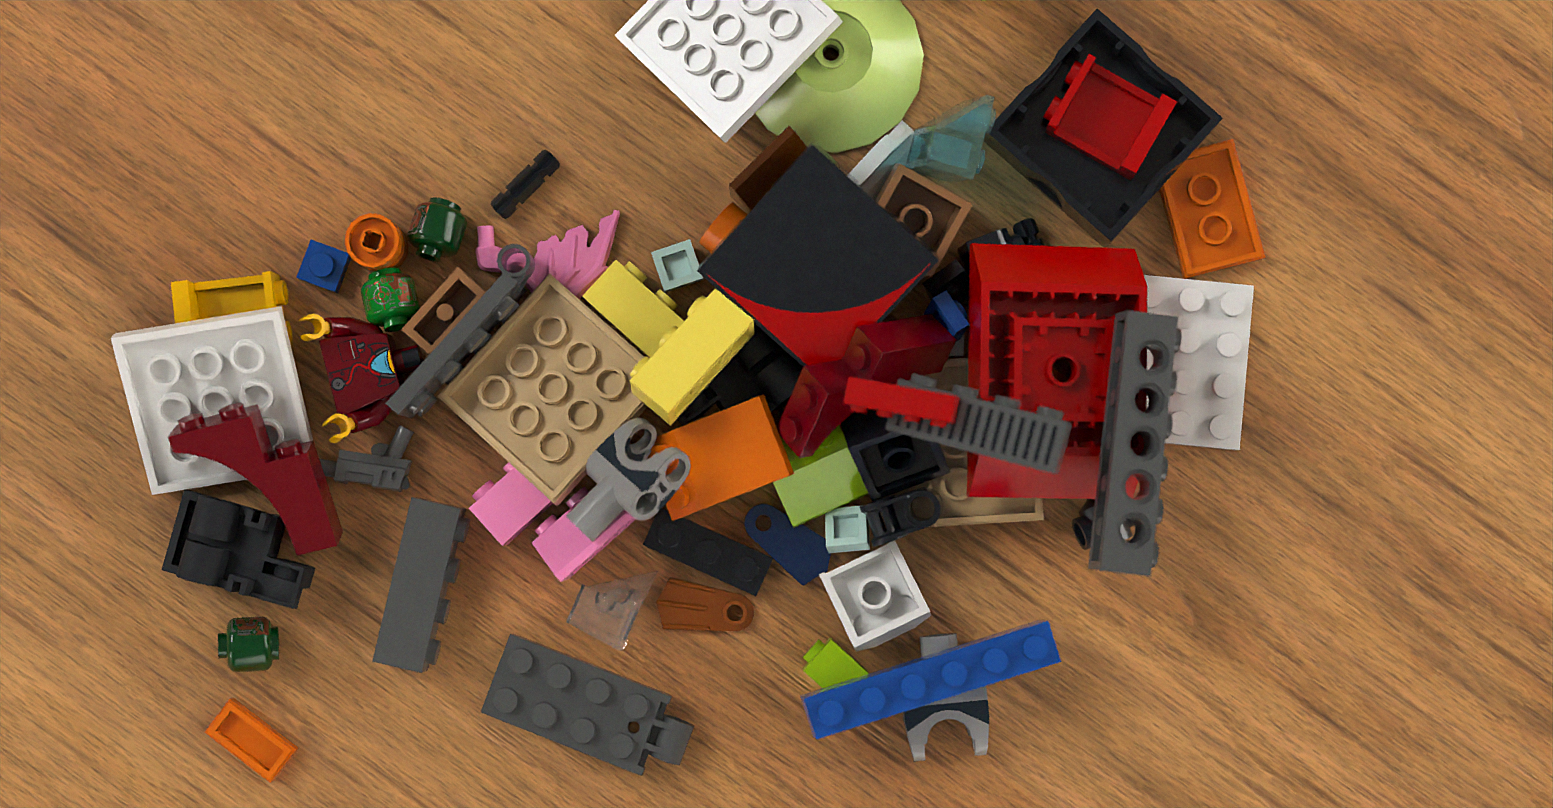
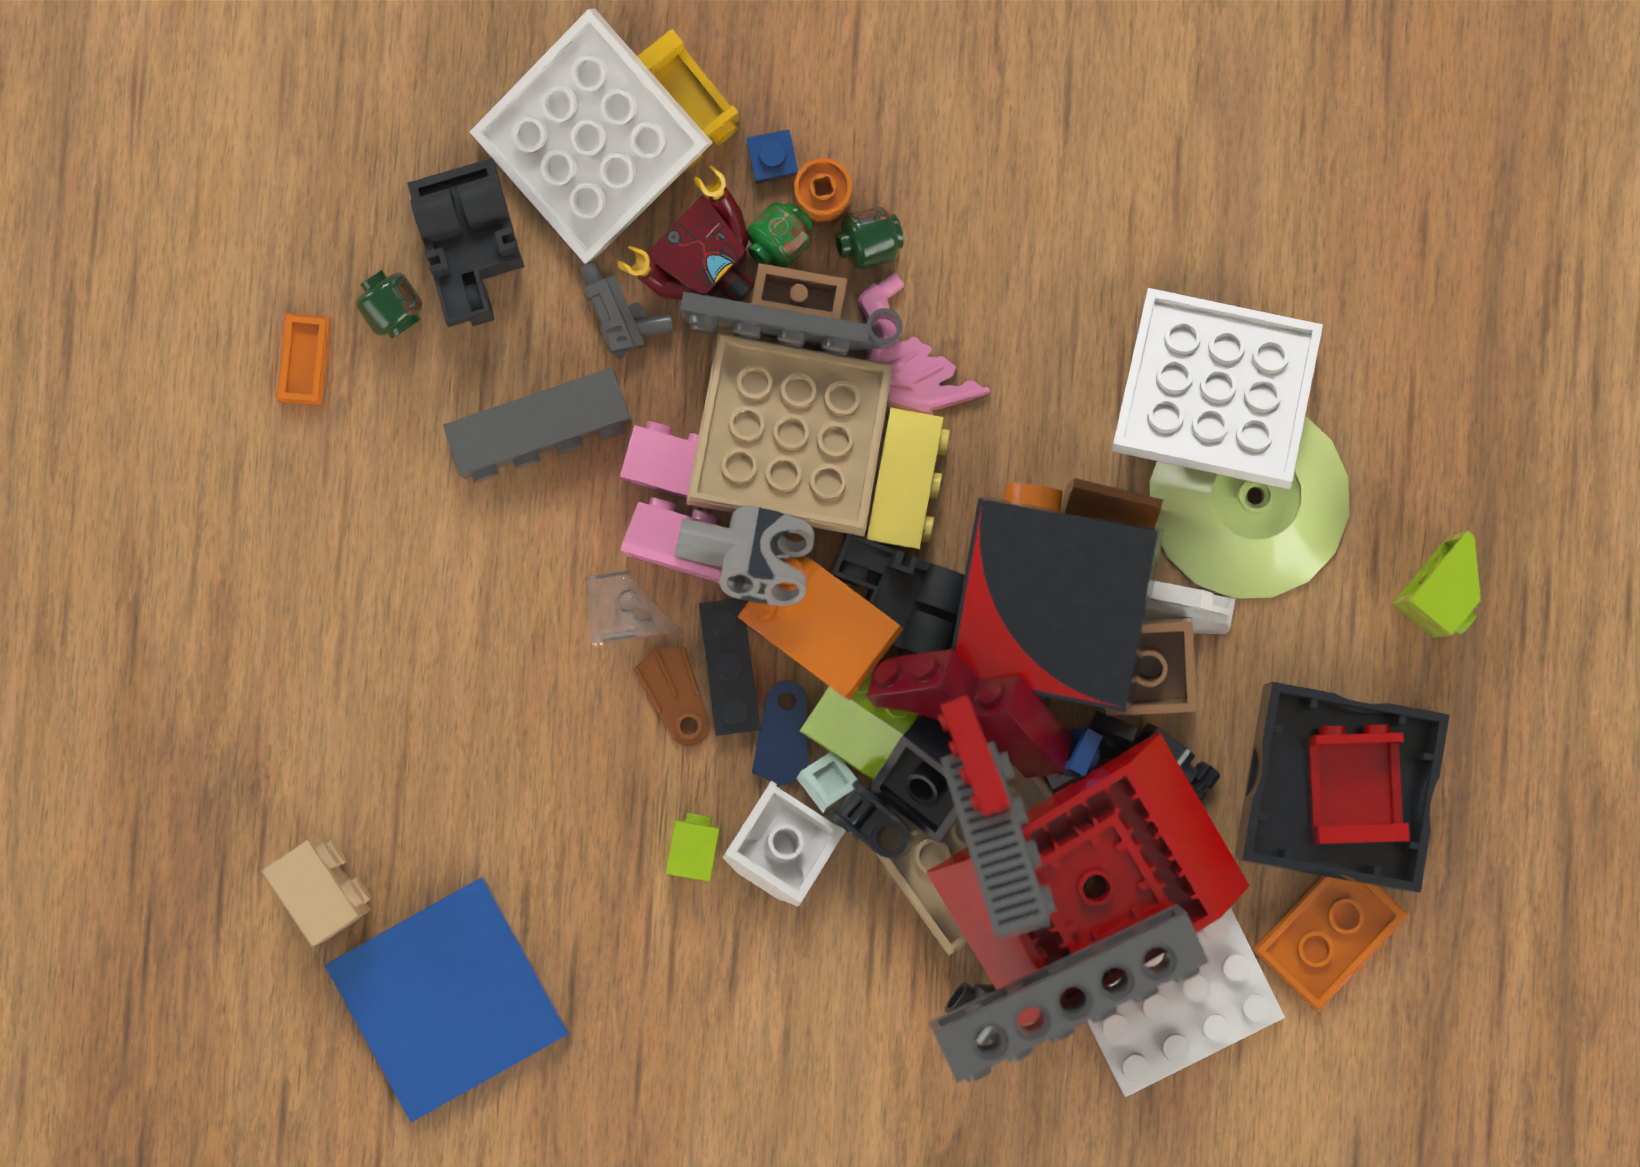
camera: 50 degrees right, 0 degrees up
(287, 476) = (561, 243): dark red arch -> none
(525, 184) = (961, 291): black axle -> none
(584, 707) = (519, 642): dark grey hinge -> none
(677, 265) = (972, 476): light aqua plate -> none
(691, 355) = (898, 541): light yellow brick -> none
(930, 678) = (739, 940): blue brick -> none
(953, 141) = (1244, 657): clear light blue slope -> none
(968, 708) = (731, 964): light grey connector -> none

